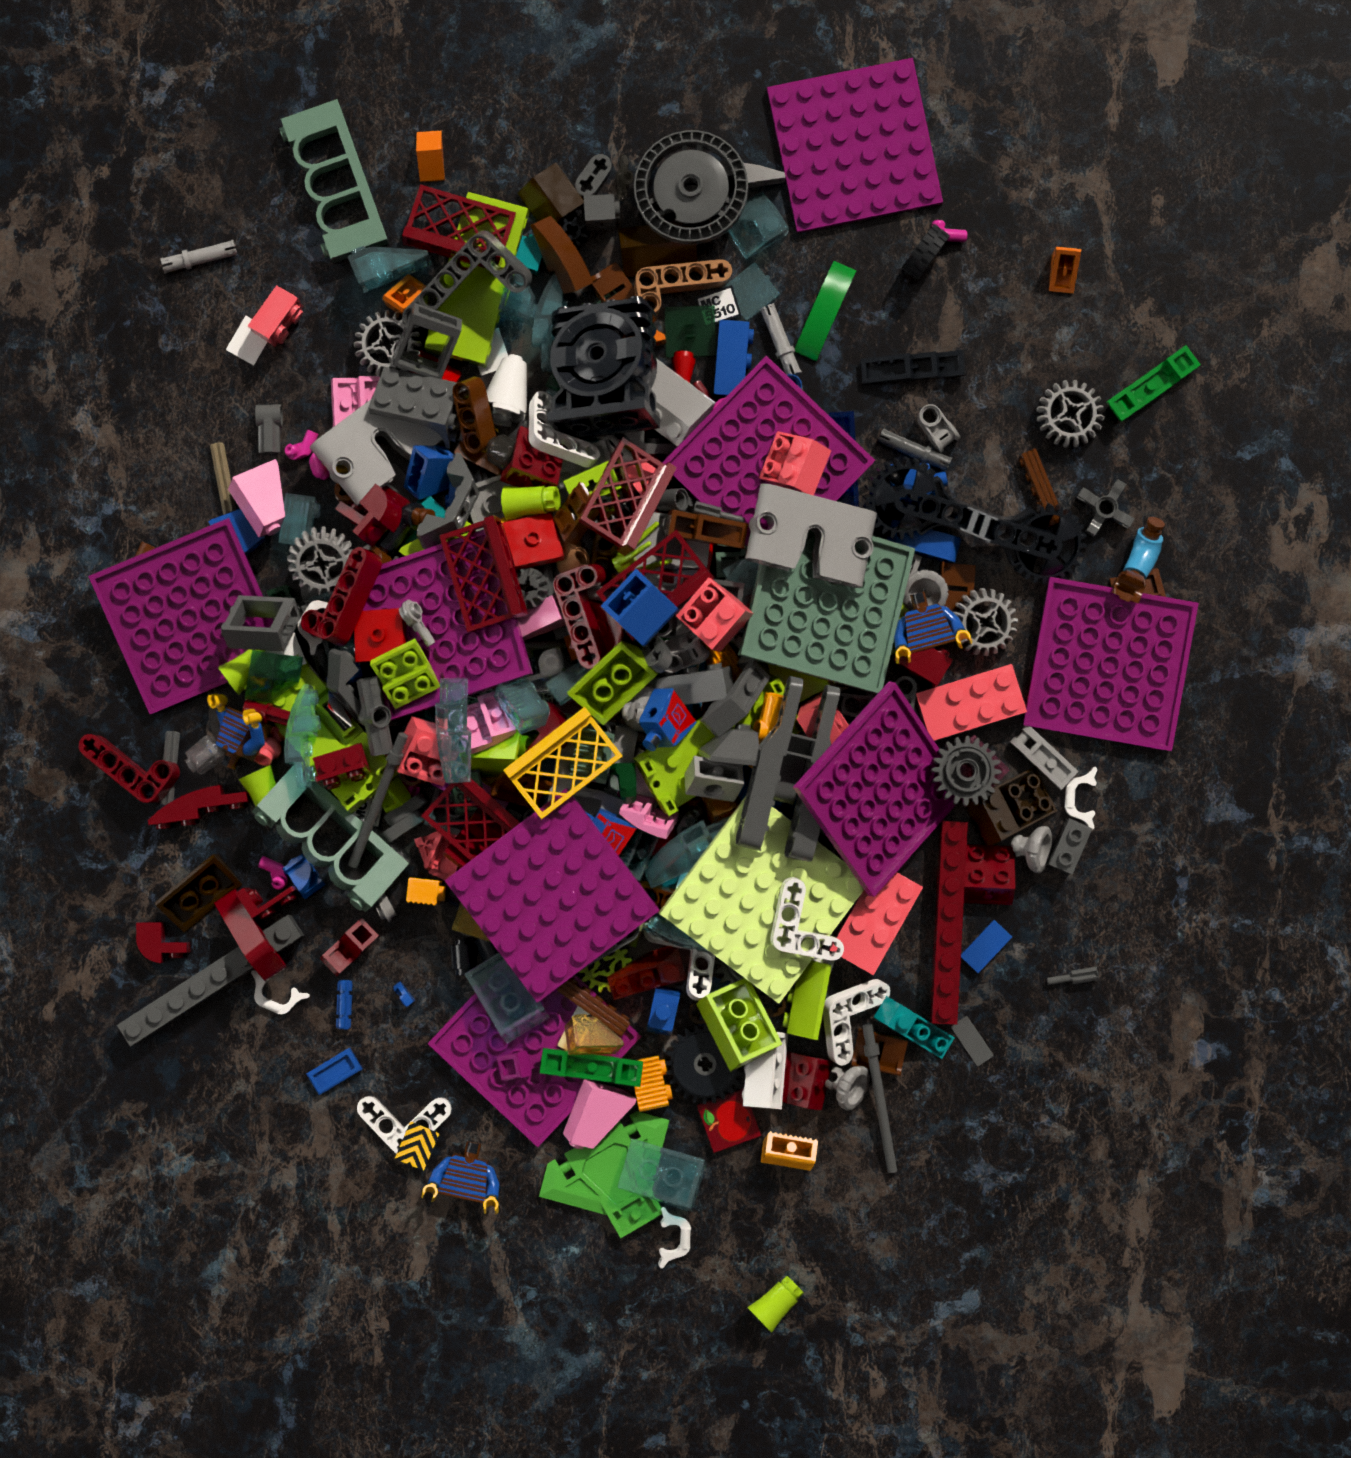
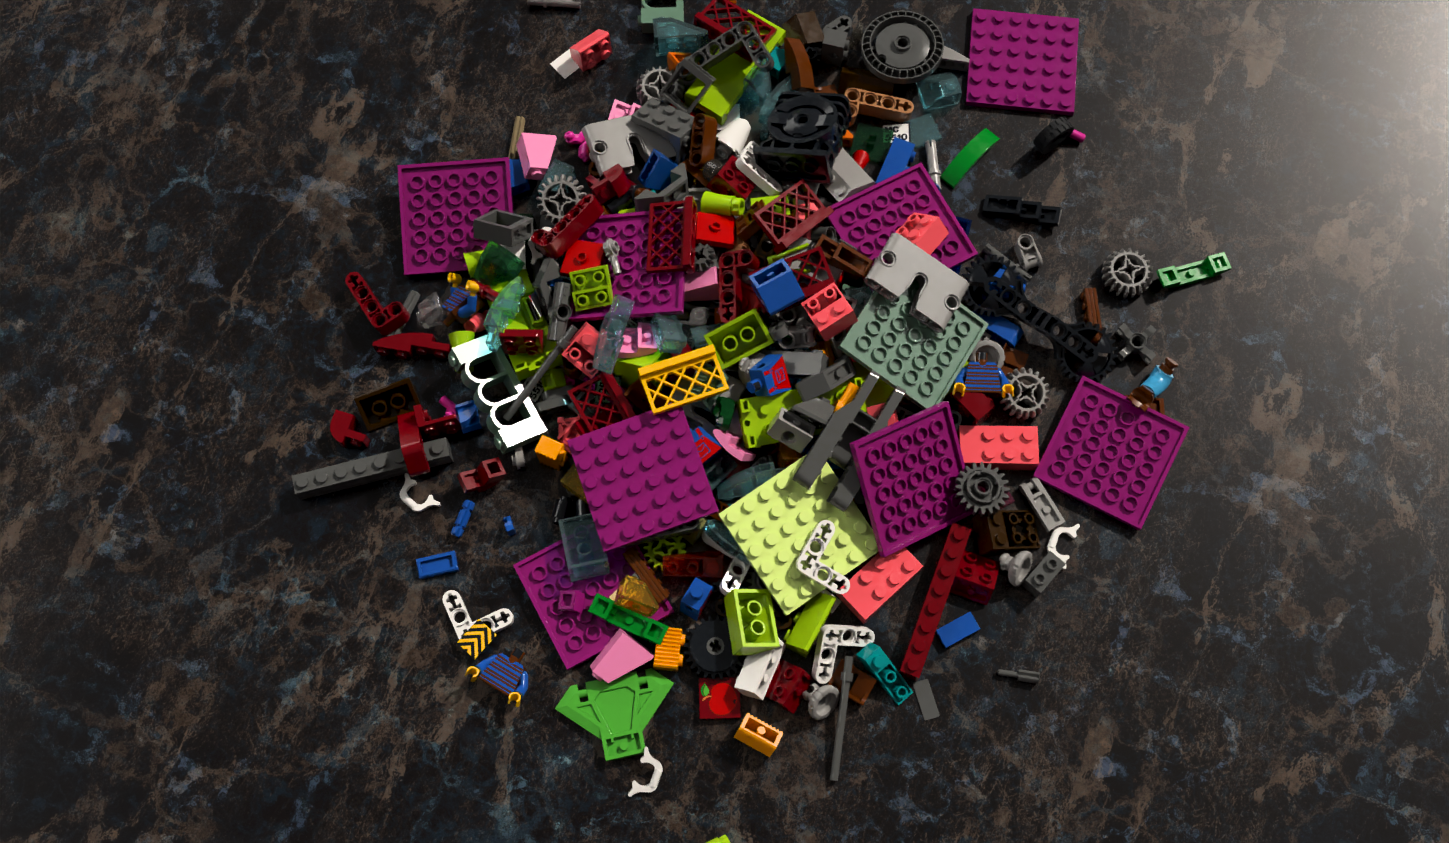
camera: 20 degrees right, 15 degrees down
(269, 420) = (561, 114): dark grey piece -> none
(662, 1174) = (654, 721): clear light blue slope -> none
(1064, 269) = (1149, 176): orange slope -> none

